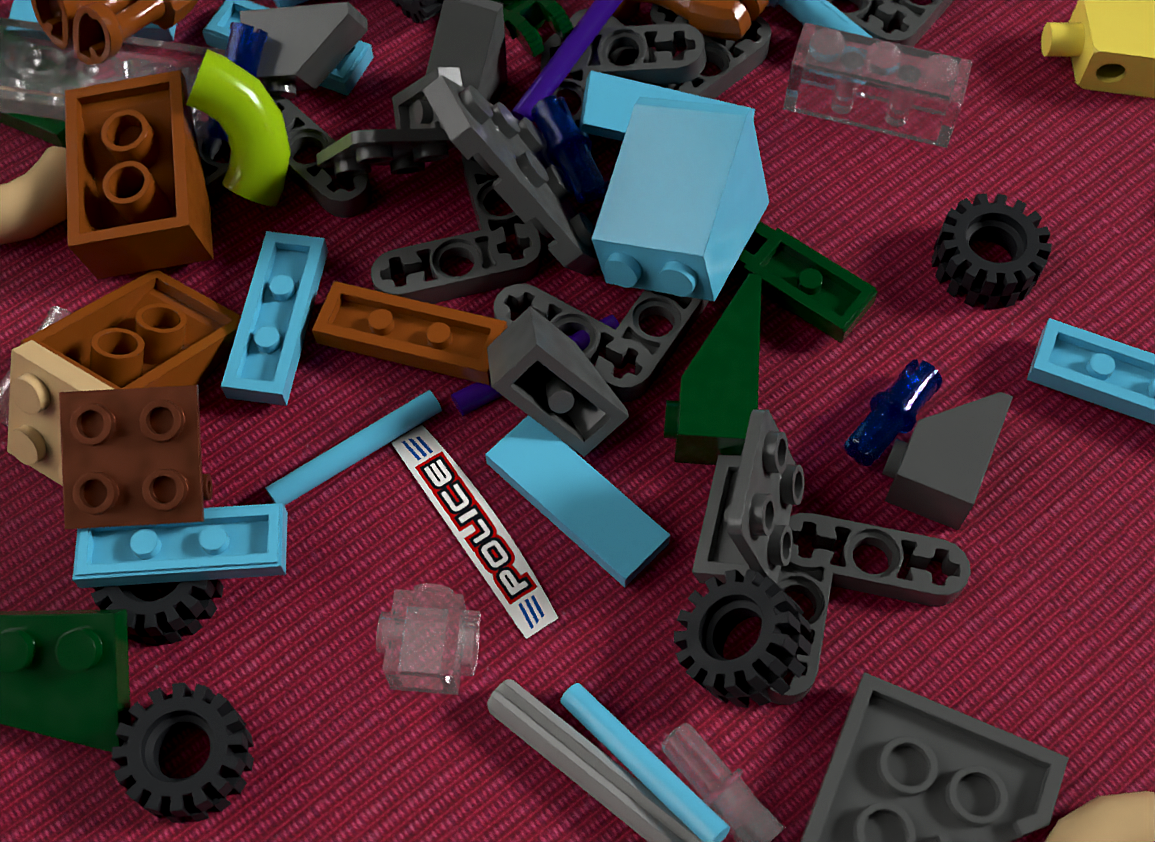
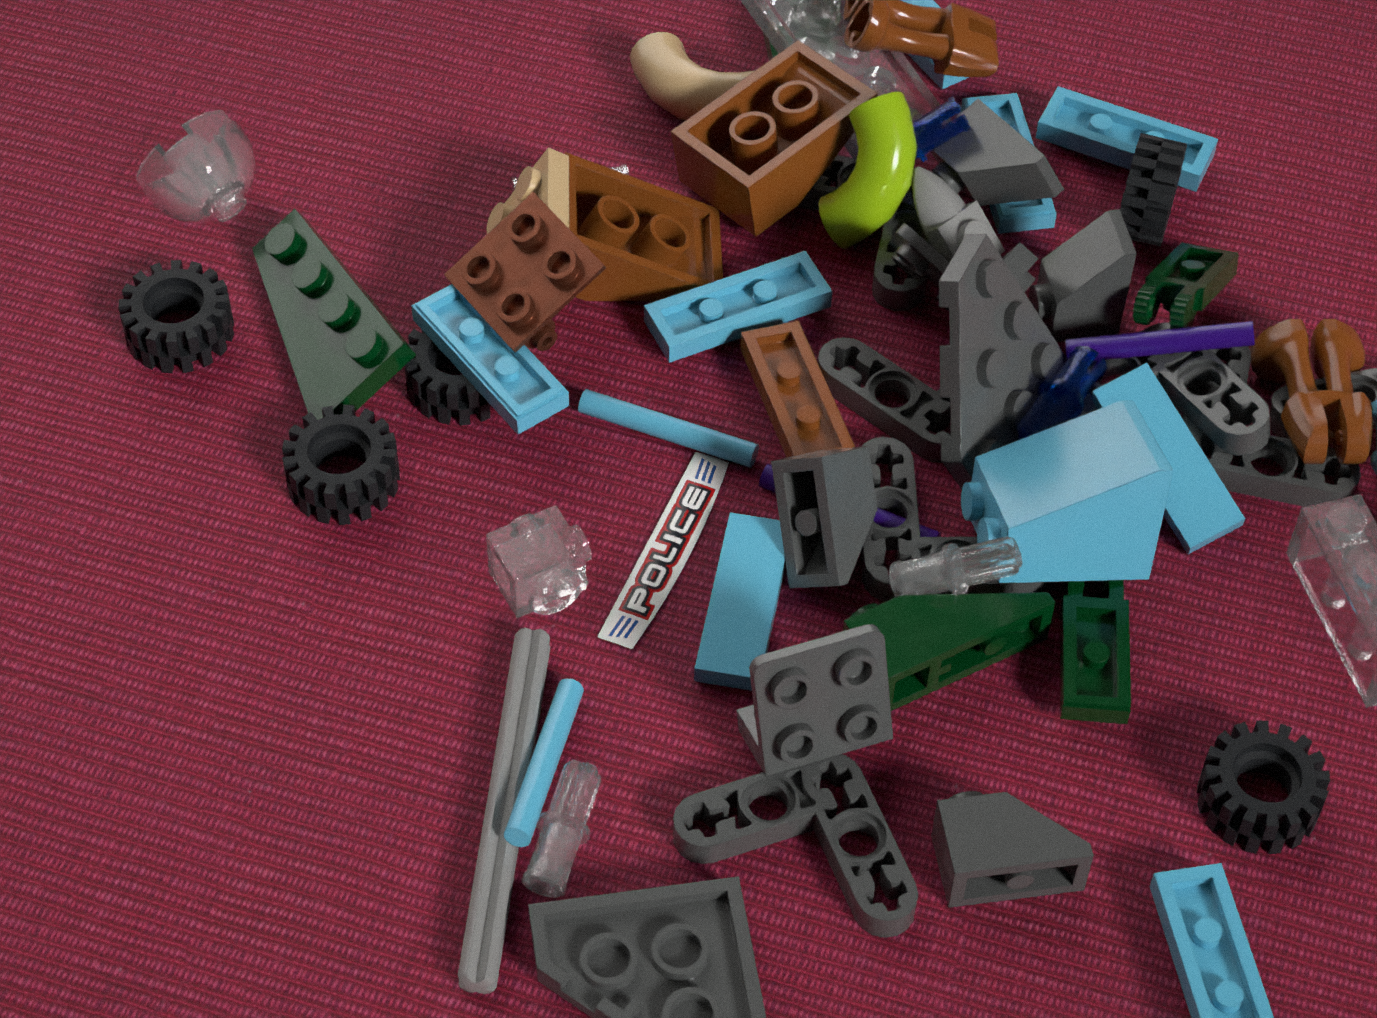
camera: 55 degrees right, 10 degrees down
(330, 111) = (945, 214): none -> light grey plate
(692, 320) = (956, 568): none -> clear axle
(770, 656) = (697, 765): black tyre -> none
(893, 411) = (1038, 789): clear blue axle -> none

